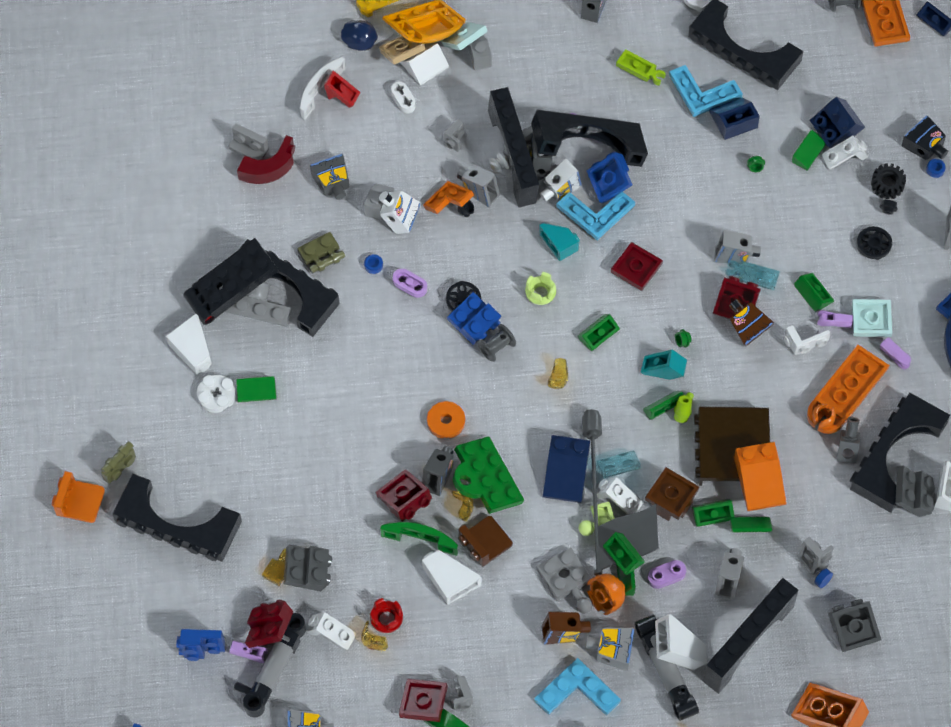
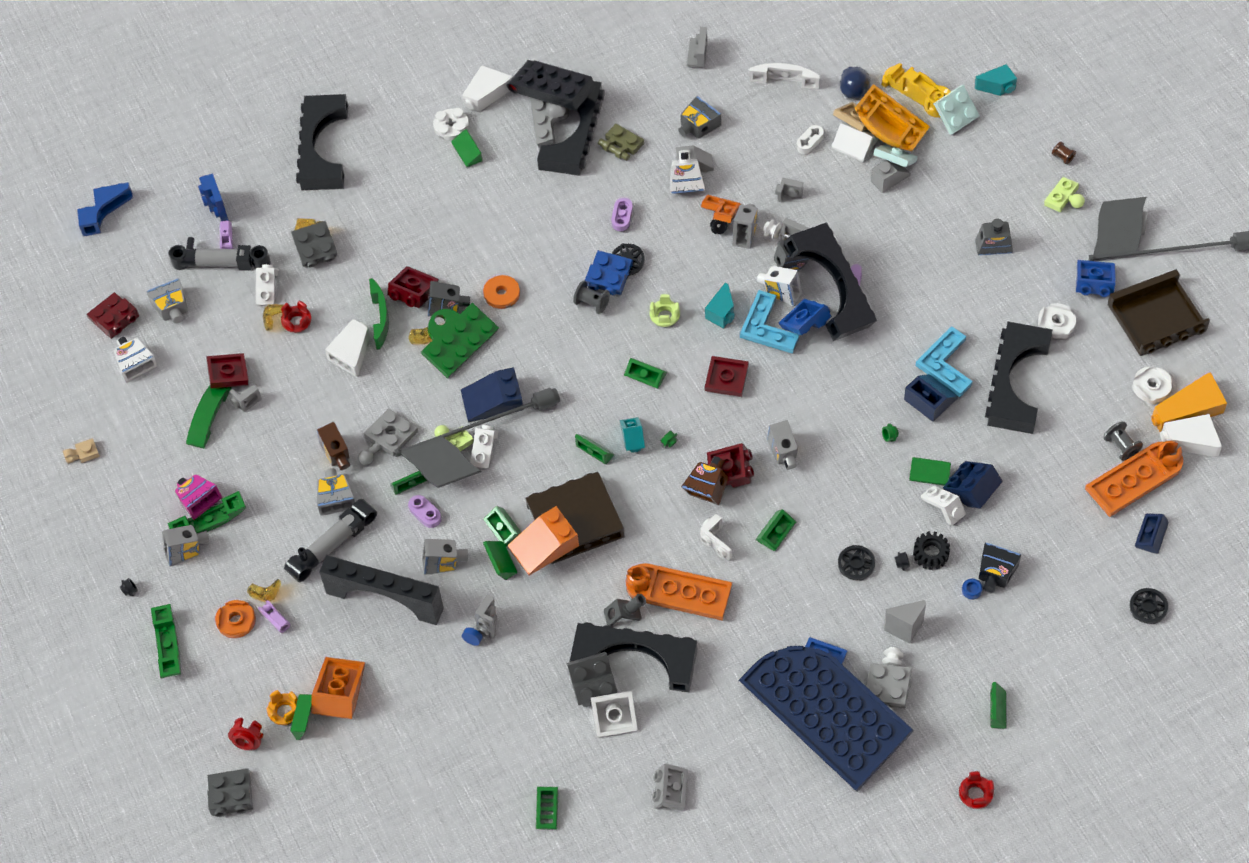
camera: 70 degrees right, 5 degrees down
(77, 499) = (311, 70): orange bracket -> none
(114, 466) = (353, 82): olive plate -> none
(268, 623) = (253, 234): dark red plate -> none
(270, 169) = (686, 76): dark red arch -> none
(338, 87) = (788, 89): red slope -> none
(373, 264) = (629, 183): blue tile -> none
(484, 540) = (394, 360): reddish brown bracket -> none
(504, 115) = (818, 204): black arch -> none
(559, 374) = (582, 359): clear yellow hair -> none
(581, 677) = (296, 479): medium azure plate -> none
(606, 593) = (382, 468): orange cylinder -> none
(618, 464) = (515, 433): clear light blue plate -> none
(623, 553) = (421, 462): green slope -> none
(639, 67) = (944, 302): lime plate -> none
(672, 495) = (499, 483): reddish brown panel -> none
(679, 644) = (349, 535): white slope -> none
(683, 408) = (593, 462): lime piece -> none
(754, 273) = (768, 475): clear light blue plate -> none
(838, 319) = (753, 558): lavender bar -> none
(854, 625) = (434, 676): dark grey plate -> none
(872, 318) = (769, 586): light aqua plate -> none
(895, 353) = (740, 620): lavender bar -> none

